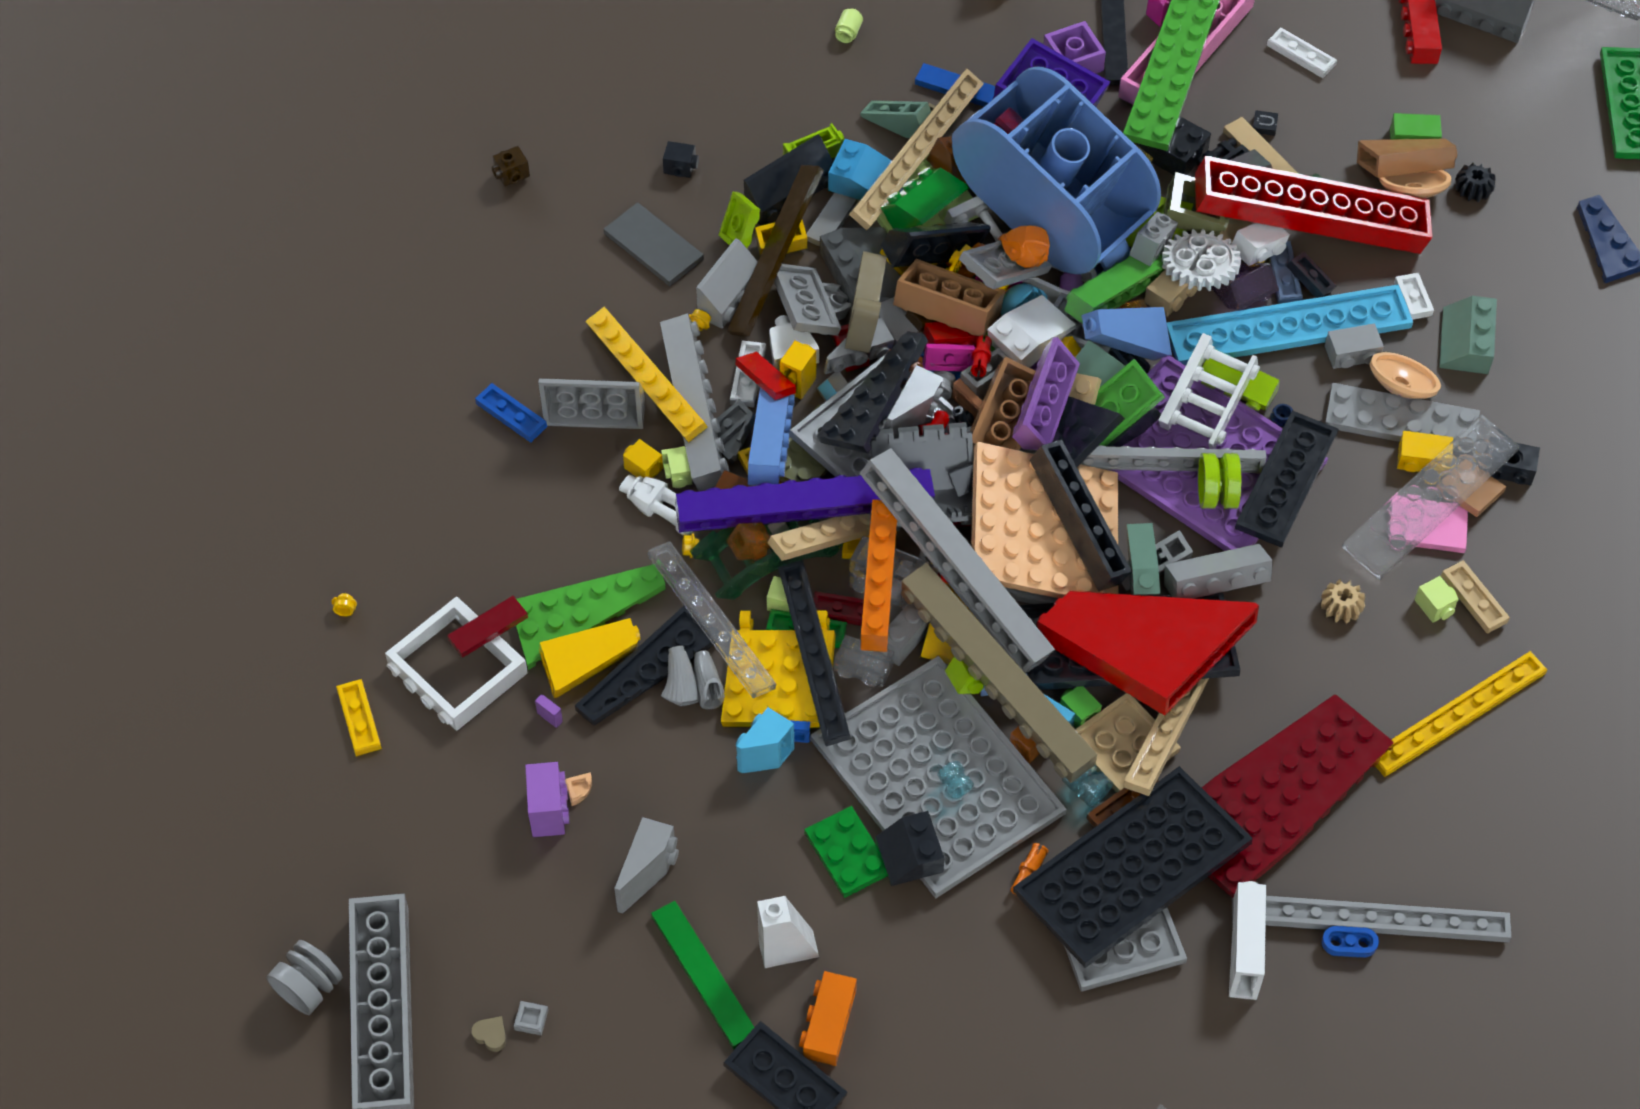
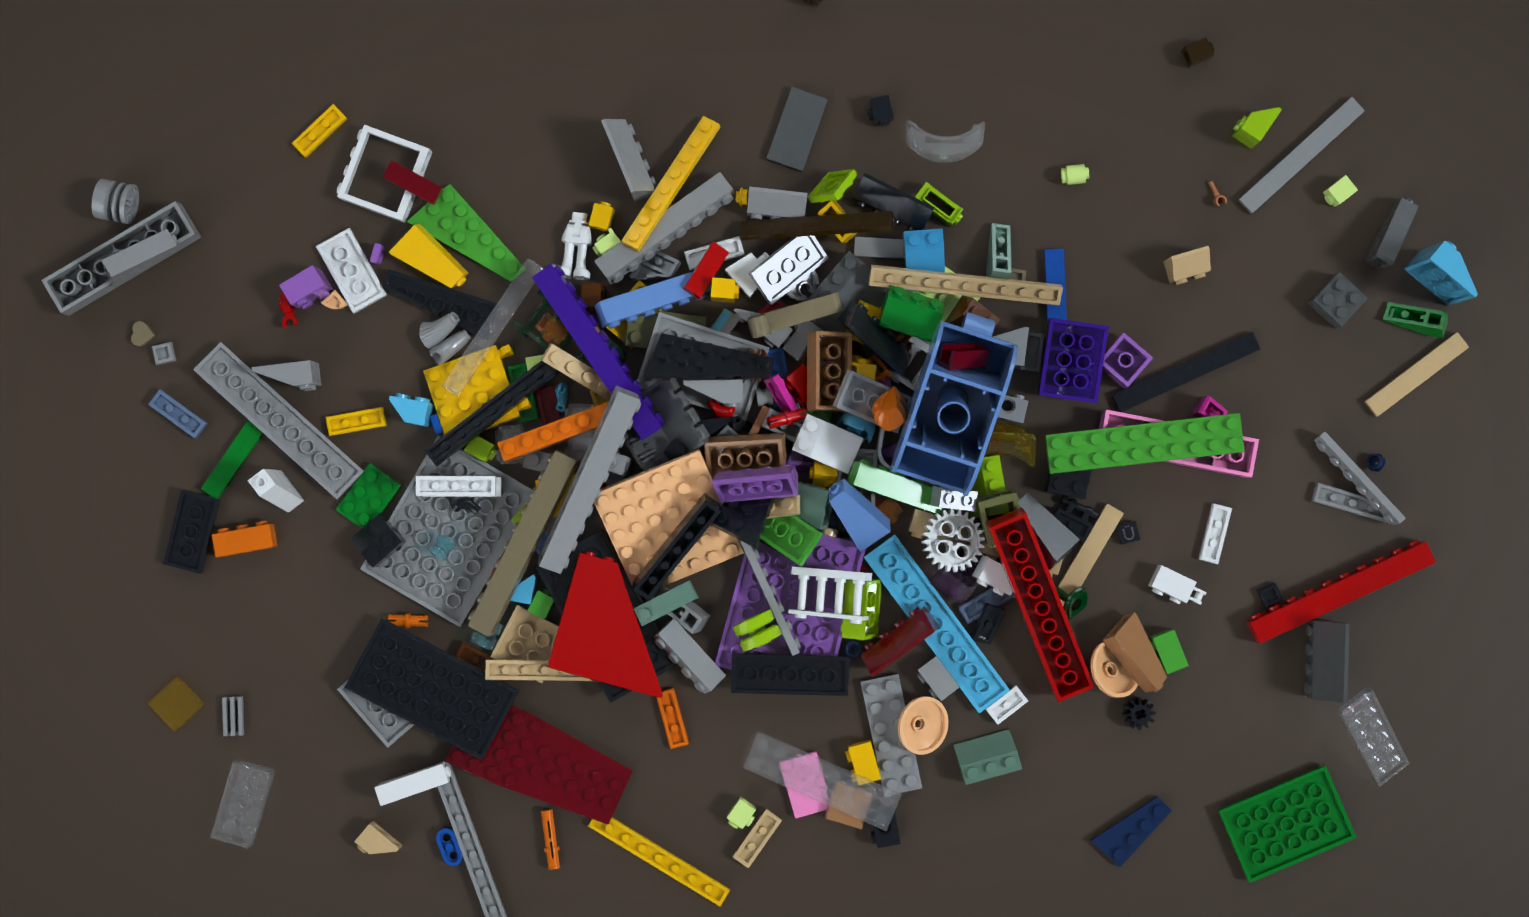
camera: 65 degrees right, 30 degrees up
(344, 605) = (395, 74): yellow plate -> none
(397, 963) = (139, 257): none -> light grey slope
(511, 412) = (600, 103): blue plate -> none
(557, 839) = (288, 310): none -> red plate
(573, 747) = (351, 270): none -> white tile
(620, 1031) = (178, 413): none -> sand blue plate
(692, 909) = (278, 420): none -> light grey plate
(743, 826) = (356, 421): none -> yellow tile
(749, 126) = (944, 148): none -> clear windscreen
(837, 588) = (562, 396): none -> medium azure arm
(854, 692) = (481, 449): none -> lime brick
(890, 715) = (458, 486): none -> white fence
(912, 734) = (465, 503): none -> black arm
(1289, 631) = (672, 719): none -> orange tile
(1295, 355) = (899, 640): none -> dark red slope
(1305, 1025) = (376, 840): none -> tan slope
(1343, 101) = (1174, 585): none -> white brick
(1343, 601) = (705, 754): tan gear -> none
(1391, 32) = (1270, 595): none -> black tile
(1391, 822) = (553, 863): none -> orange pin

